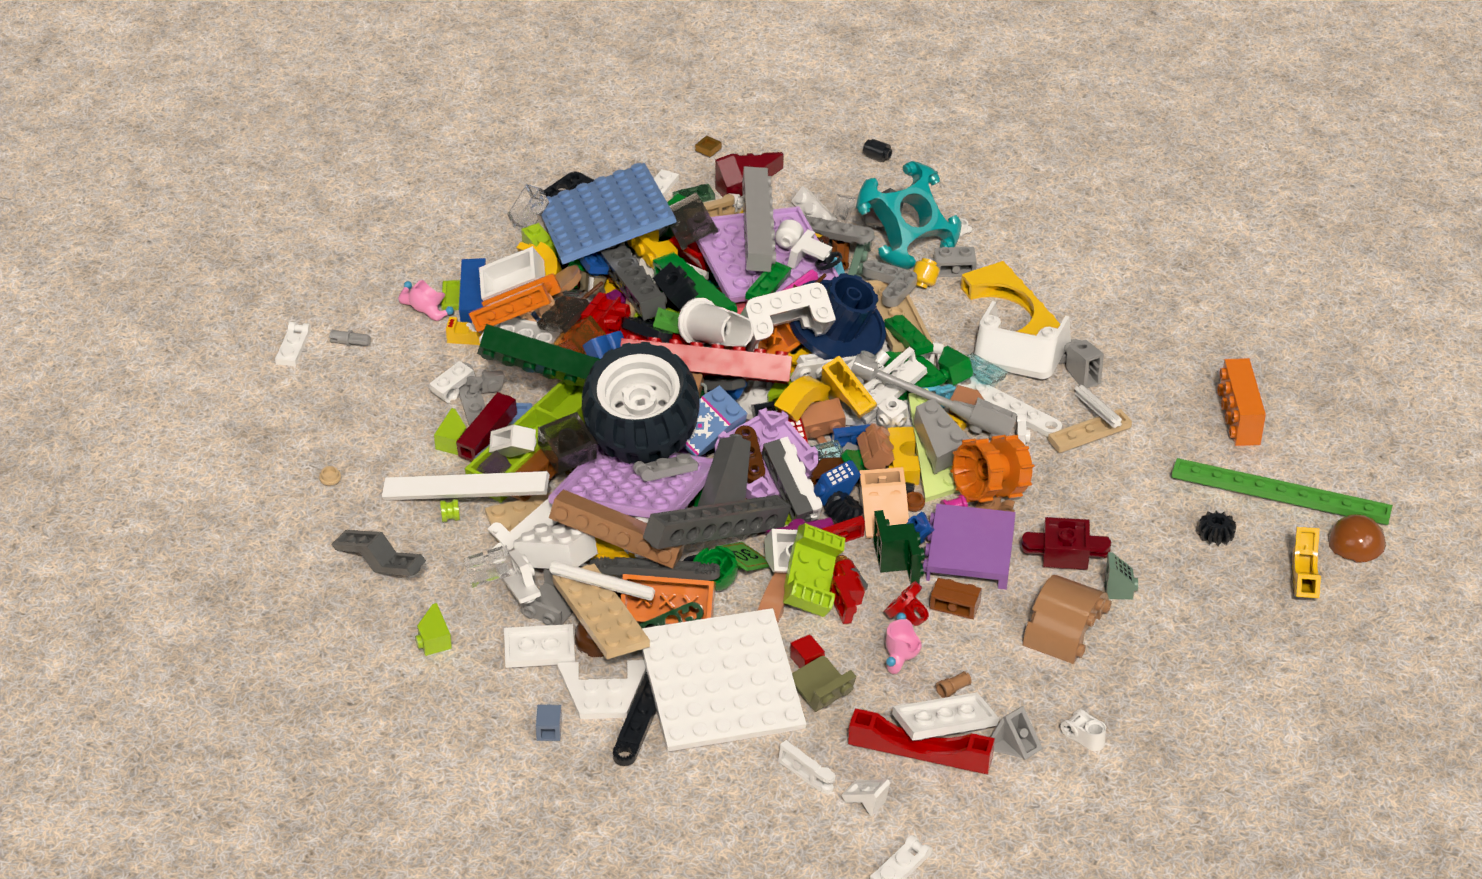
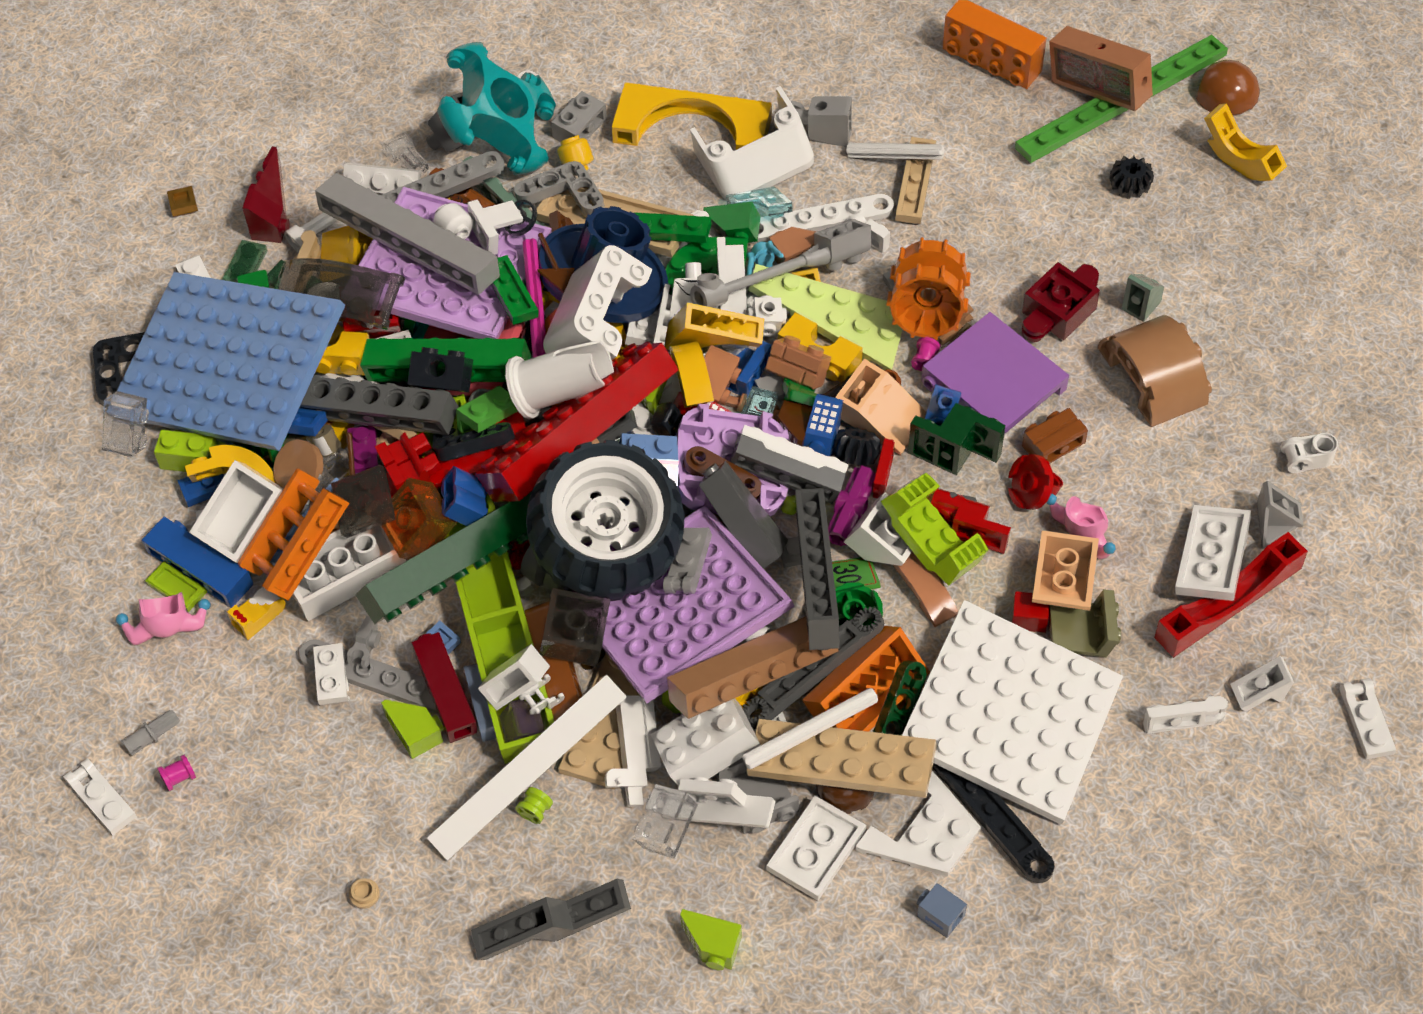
camera: 50 degrees left, 15 degrees up
(334, 361) = (176, 772): none -> dark pink bush
(513, 455) = (546, 702): none -> white piece
(850, 648) = (1065, 570): none -> light nougat slope
(877, 150) = (345, 68): black brick -> none
(938, 434) = (841, 298): light grey wedge -> none
(951, 685) = (1165, 523): medium nougat pin -> none
(1280, 458) = (1101, 68): none -> nougat brick

